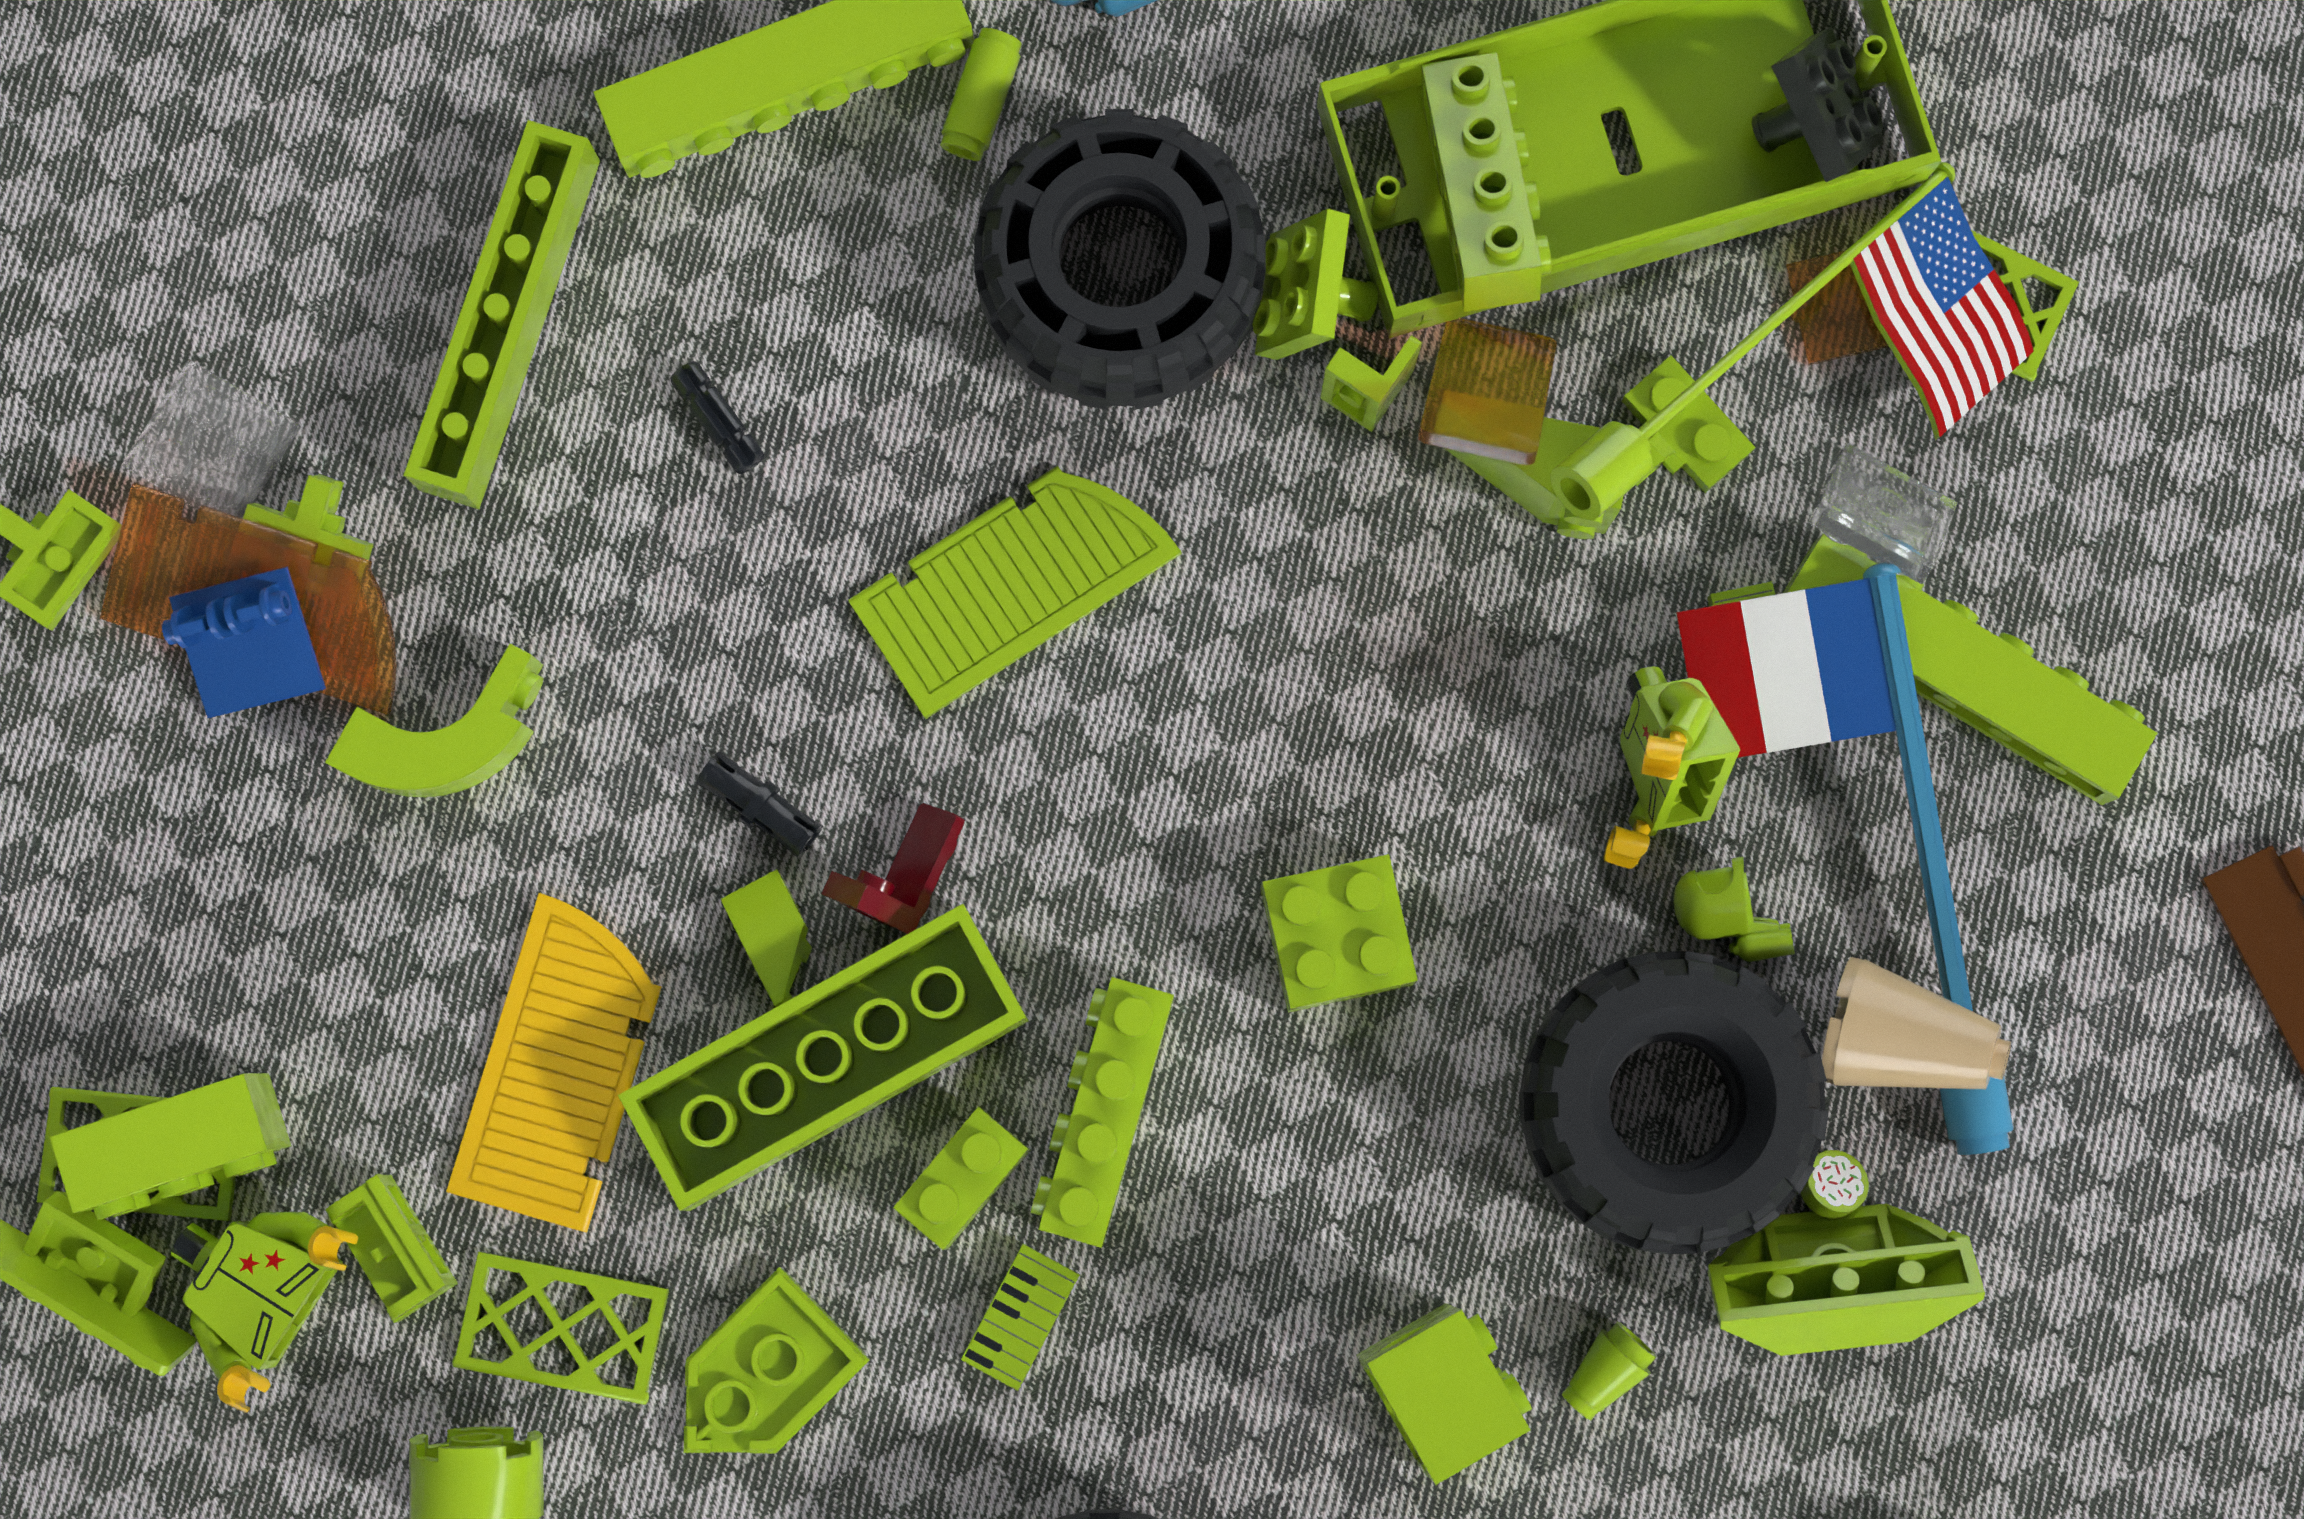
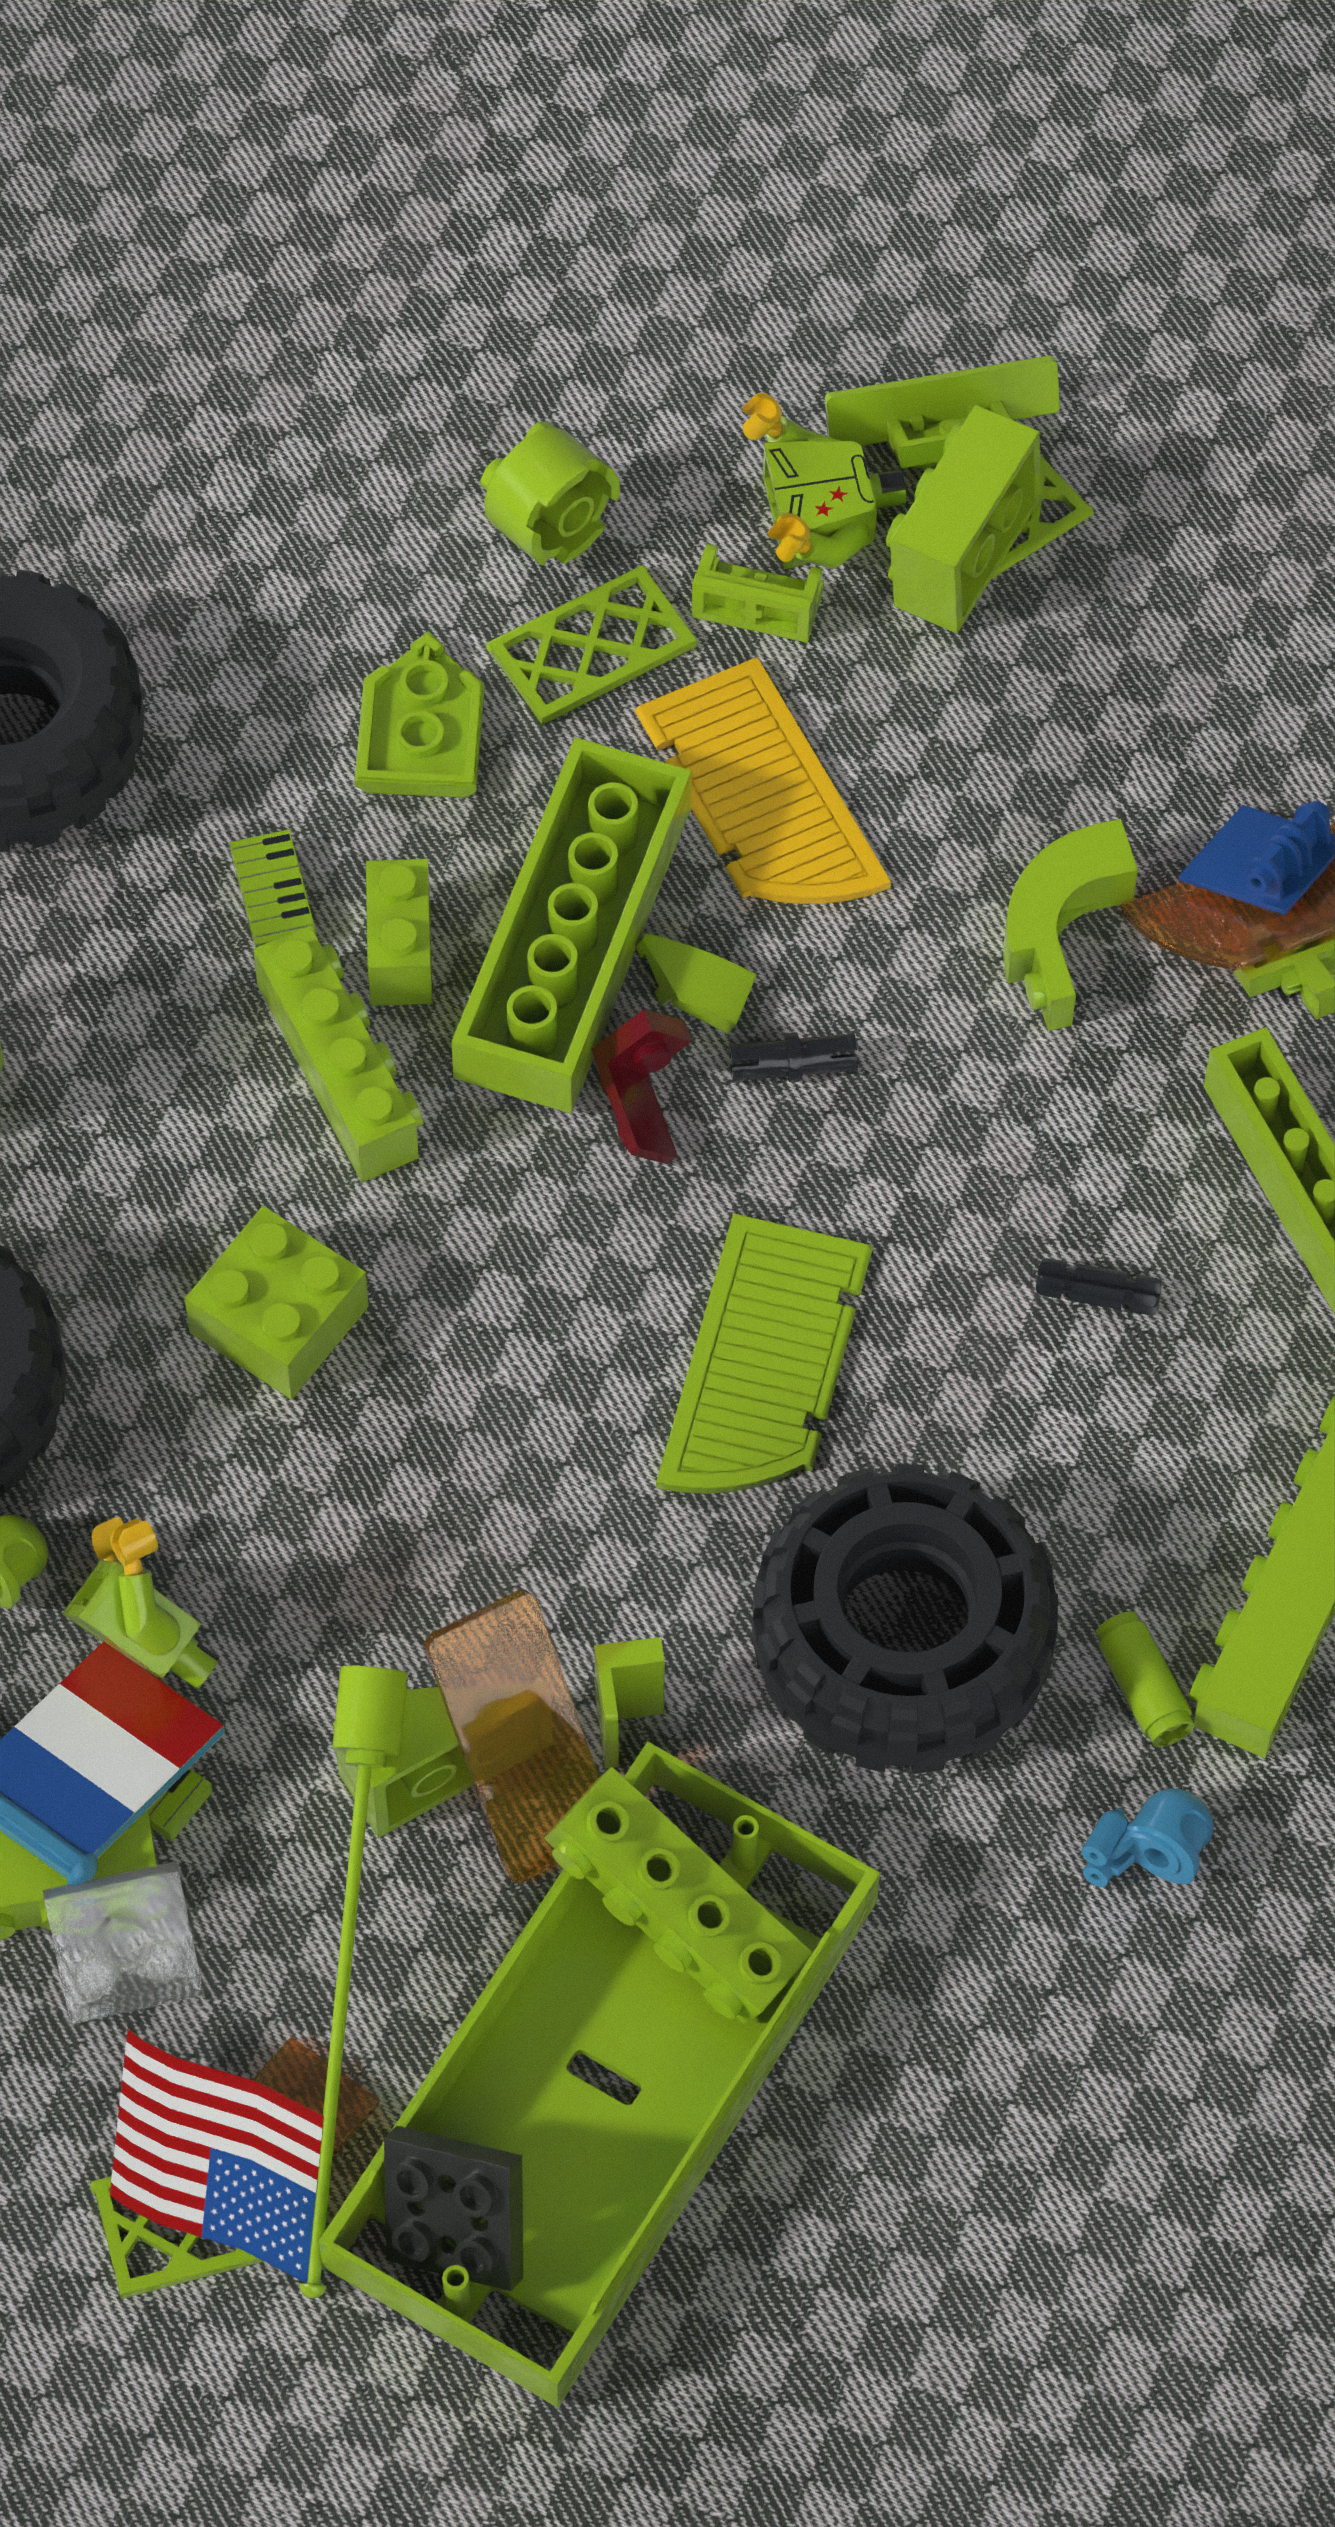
camera: 135 degrees right, 20 degrees down
(1307, 287) = (742, 1726): lime plate -> none
(1697, 437) = (314, 1898): lime hinge -> none

